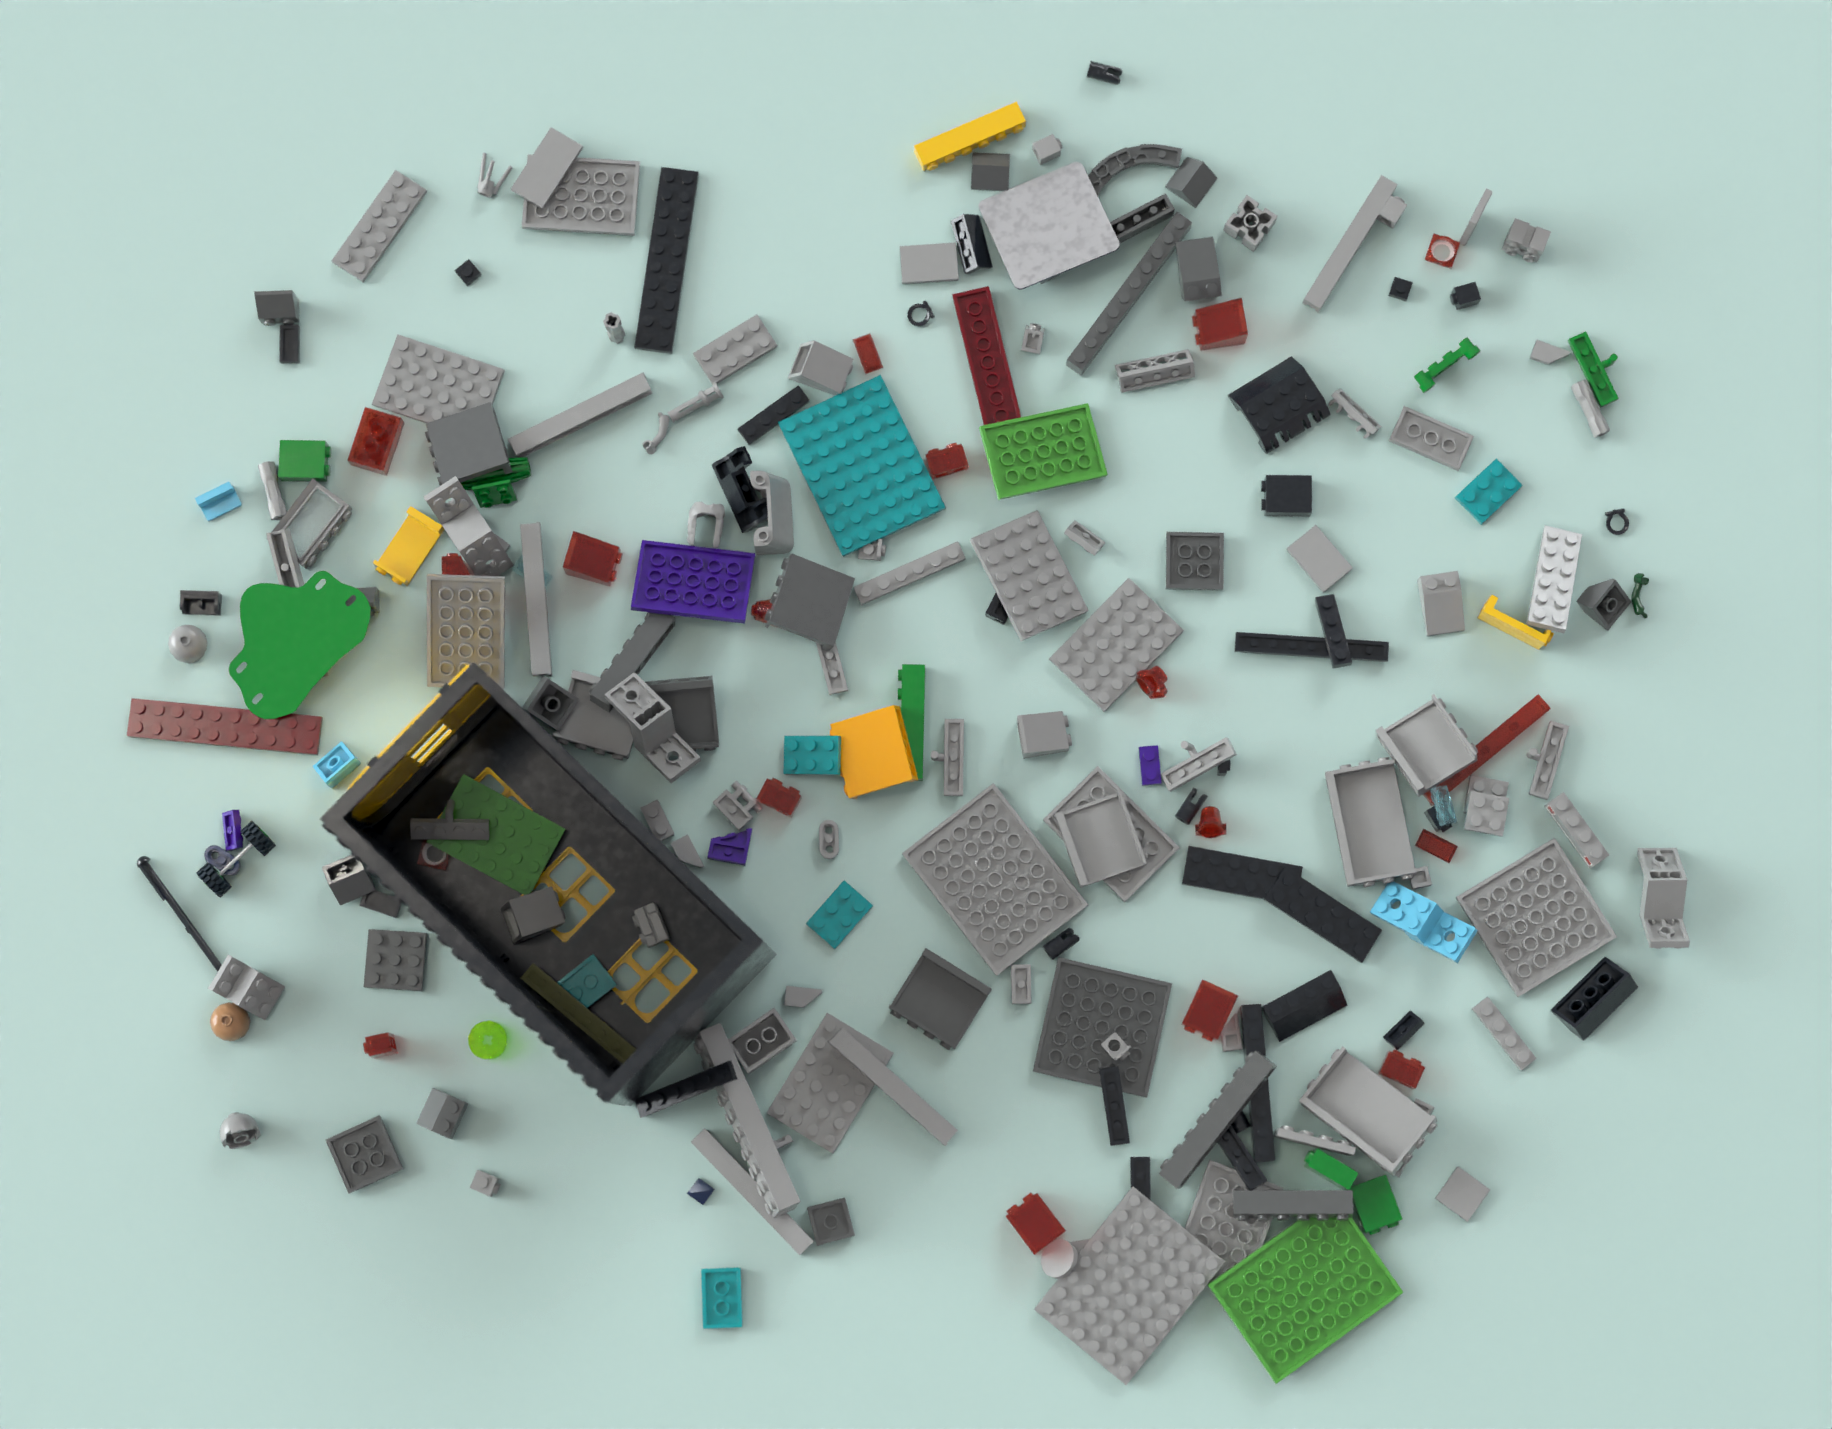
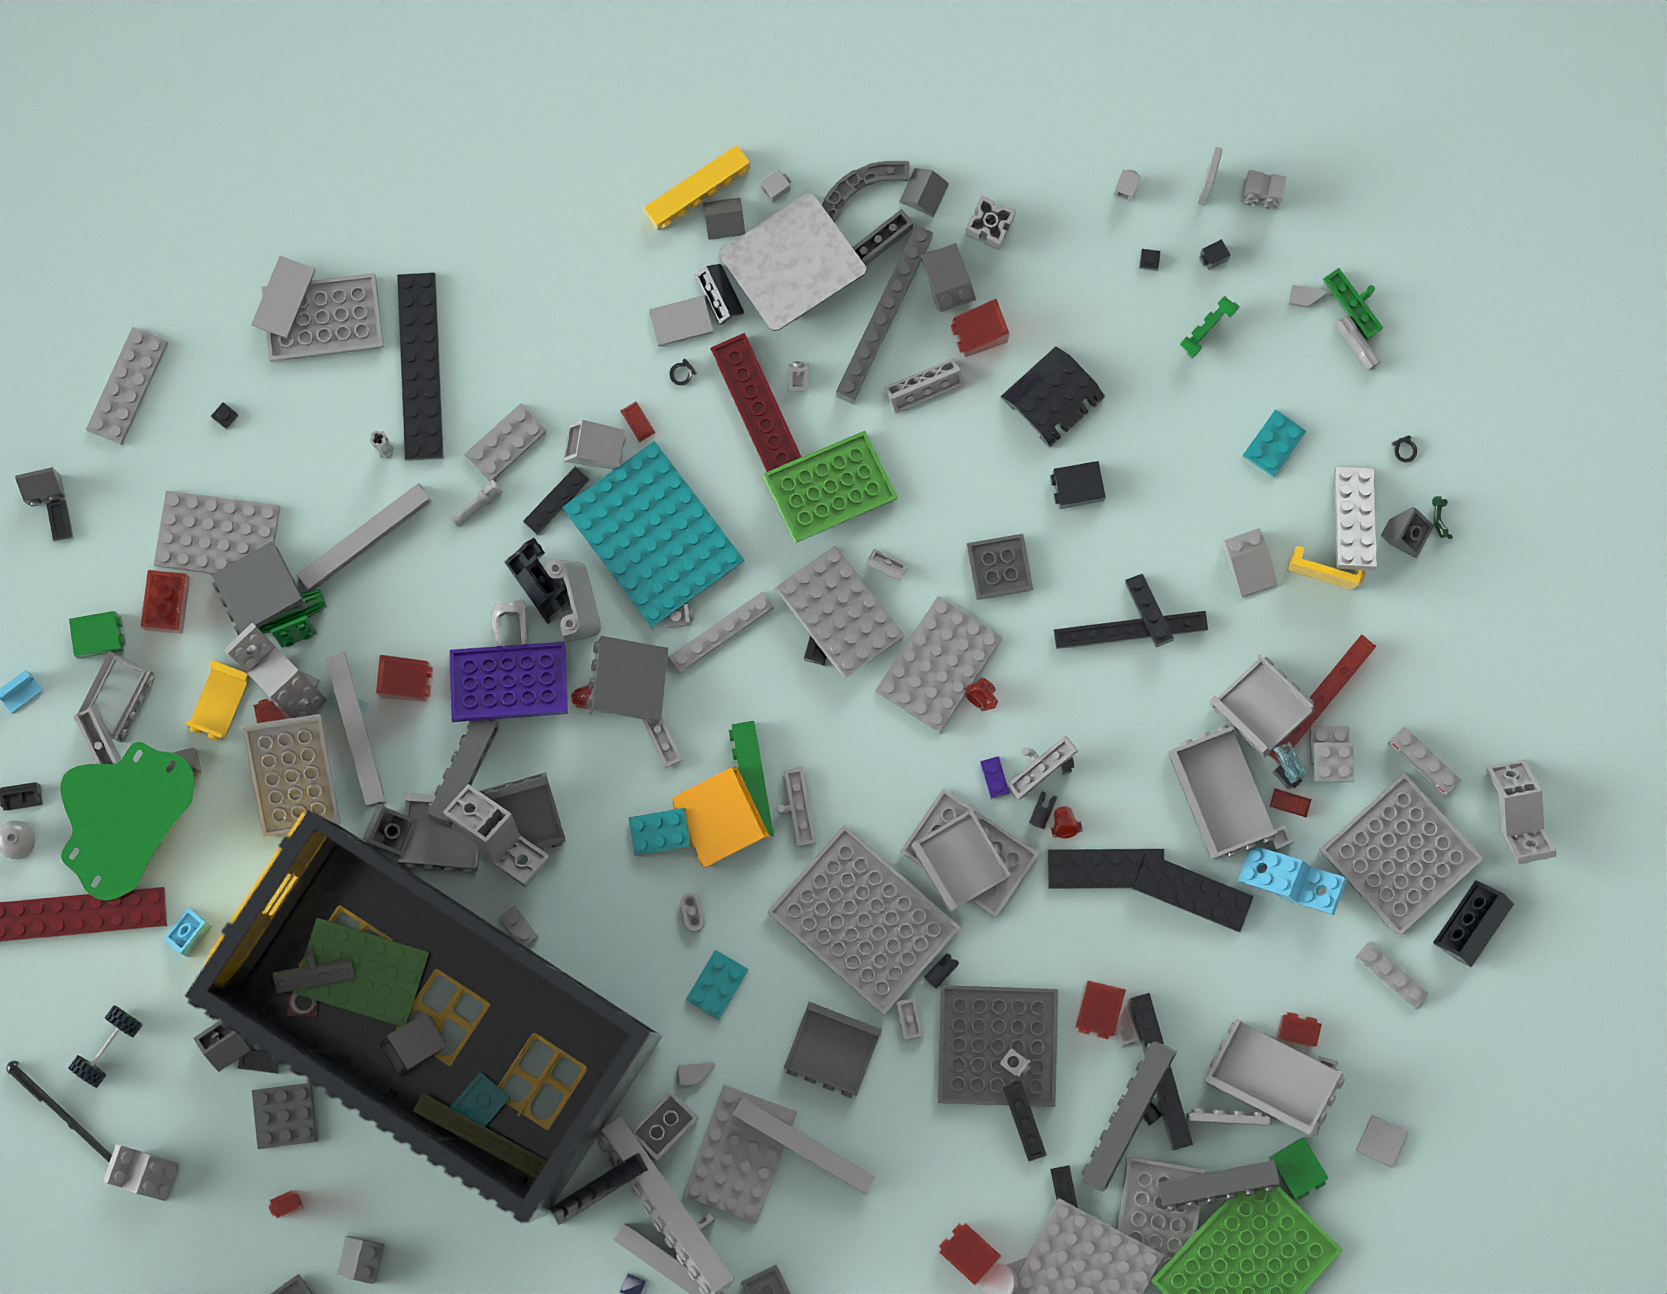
camera: 15 degrees left, 0 degrees up
(223, 859) = (92, 1049): dark blue plate -> none
(230, 1022) = (130, 1210): medium nougat cylinder -> none
(232, 829) = (96, 1017): dark purple plate -> none
(269, 477) = (65, 657): light grey axle -> none
(486, 186) = (226, 327): light grey plant -> none
(487, 1051) = (392, 1166): clear neon green plate -> none
(650, 446) = (438, 554): light grey piece -> none
(651, 925) = (533, 1032): light grey brick -> none
(686, 851) = (553, 951): light grey tile -> none
(731, 848) = (597, 939): dark purple wing -> none
(733, 810) = (592, 901): light grey plate -> none
(779, 797) = (635, 879): clear red brick -> none
(946, 461) = (736, 513): clear red brick -> none
(1043, 734) = (884, 766): light grey slope -> none
(1104, 72) = (818, 100): black hinge -> none
(1241, 1159) = (1160, 1150): black plate -> none
(1304, 1005) = (1192, 985): black slope -> none
(1319, 558) = (1121, 541): light grey tile -> none
(1330, 1169) = (1248, 1142): green brick -> none
(1349, 243) = (1091, 224): light grey tile -> none
(1355, 412) = (1128, 390): light grey plate -> none
(1403, 1030) = (1293, 991): black plate -> none
(1431, 438) = (1208, 401): light grey tile -> none
(1453, 246) = (1193, 207): clear red piece -> none
(1547, 759) = (1382, 697): light grey plate -> none

